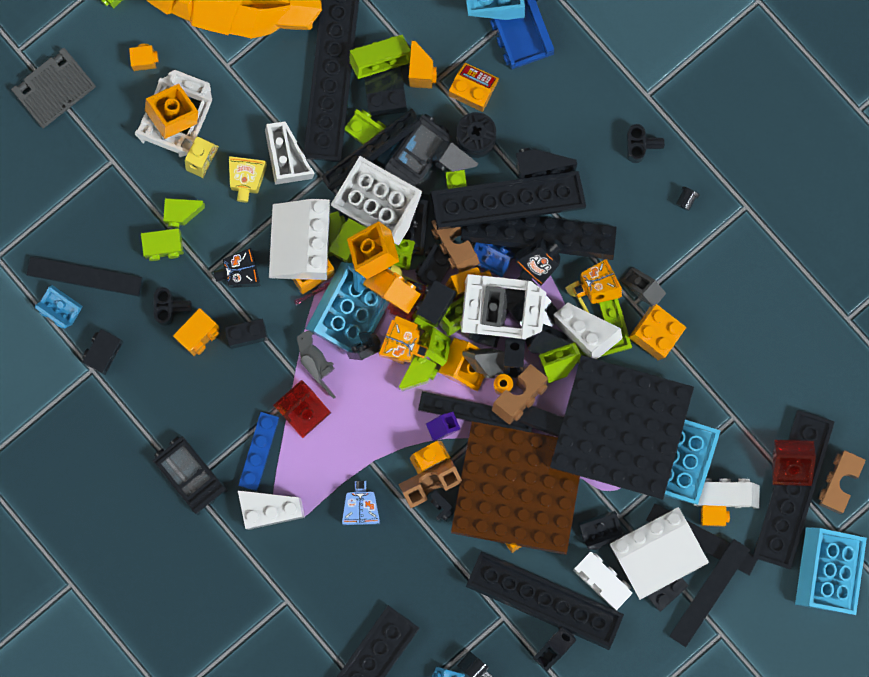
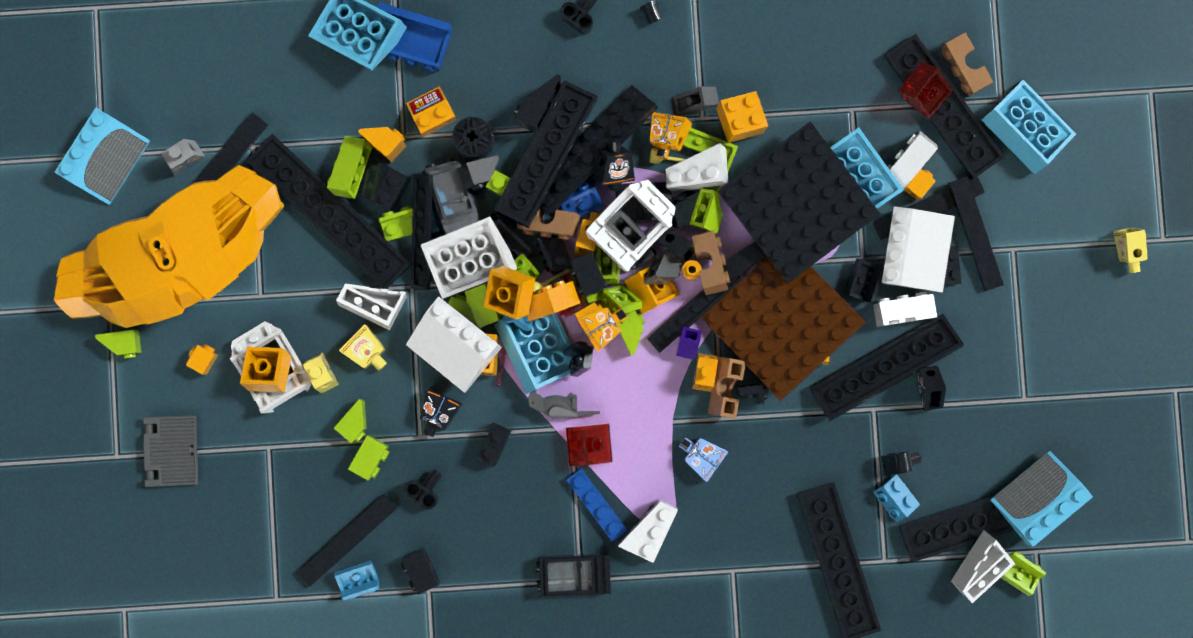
camera: 60 degrees left, 5 degrees up
(197, 332) = (464, 483): light orange brick -> none

